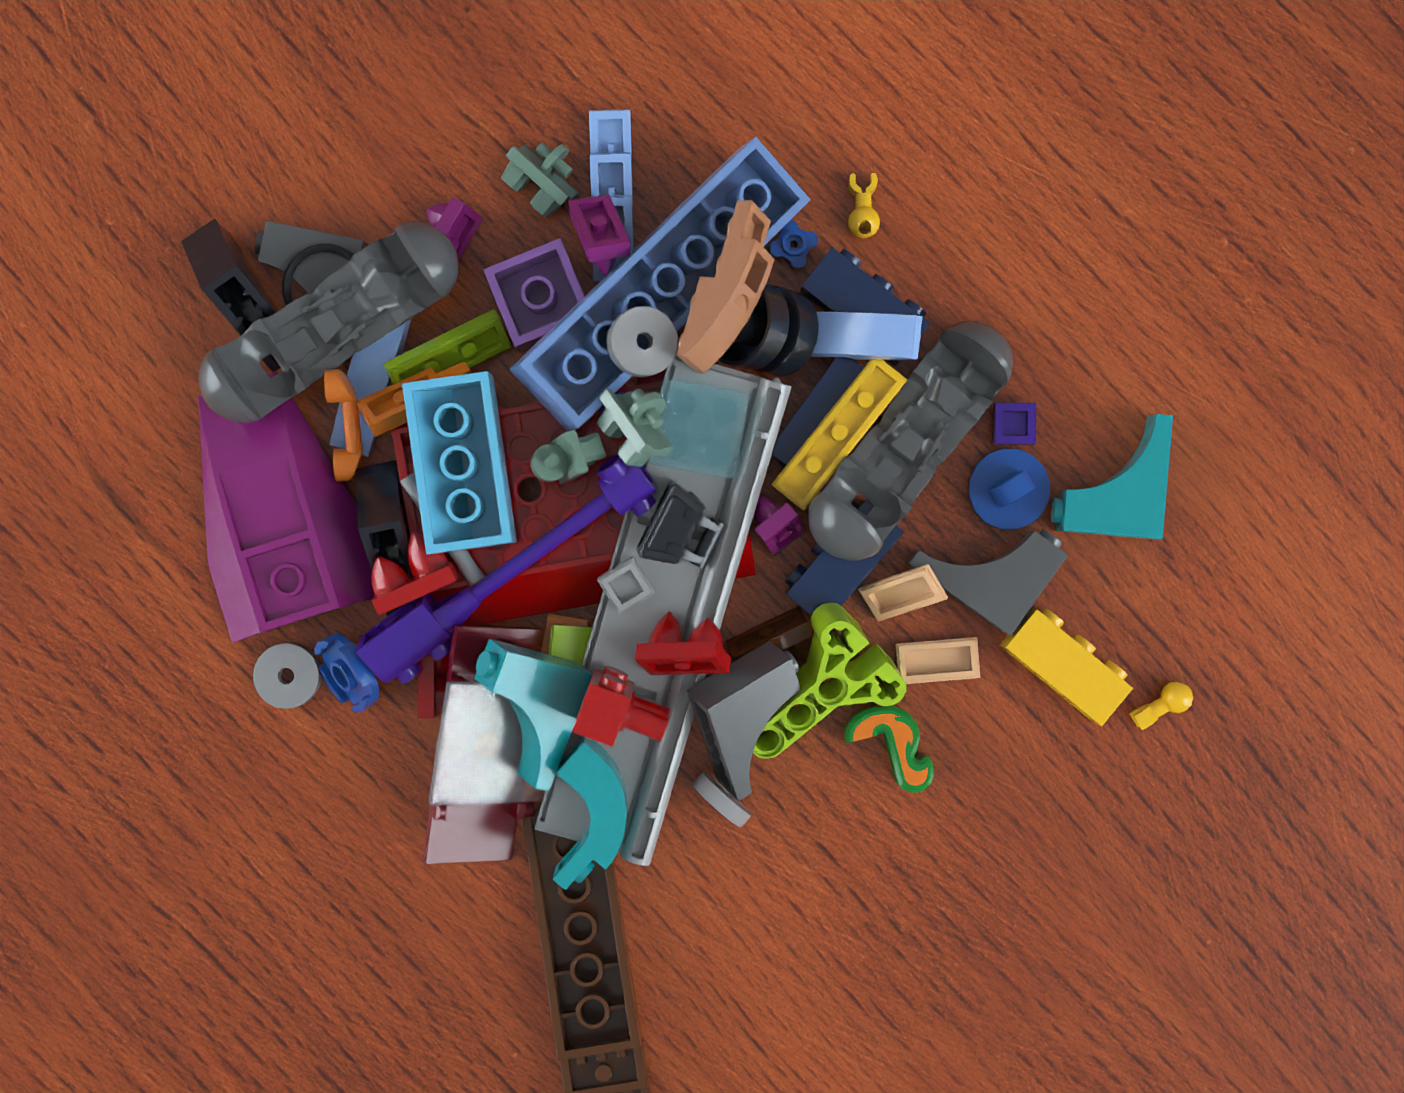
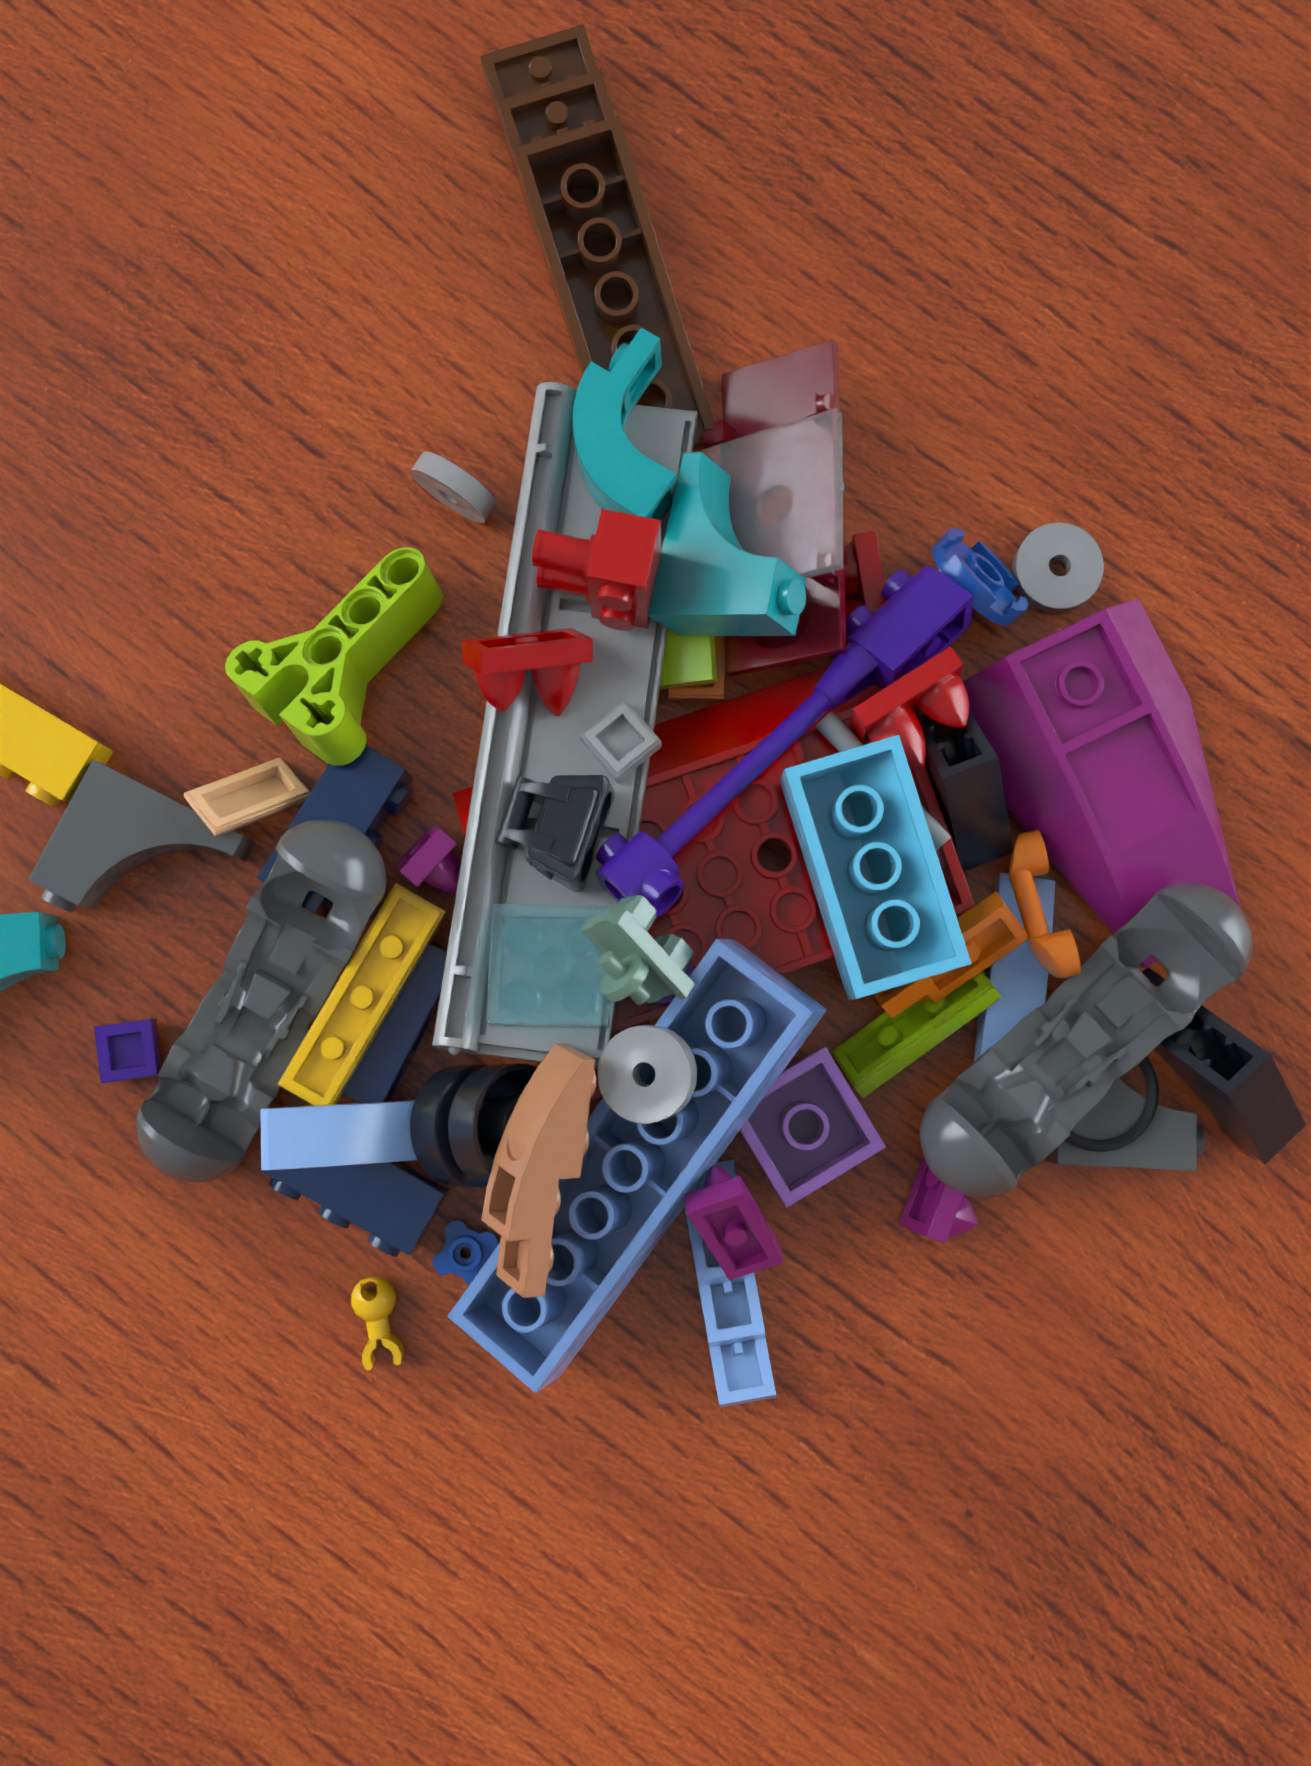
camera: 170 degrees right, 5 degrees down
(527, 165) = (821, 1301): sand green hips -> none
(566, 457) = (728, 899): sand green hips -> none
(737, 707) = (446, 600): arch -> none
(787, 631) = (406, 718): reddish brown tile -> none
(901, 740) = (223, 602): green animal -> none
(938, 660) = (191, 717): light nougat tile -> none
(1008, 489) = (126, 961): blue tile -> none

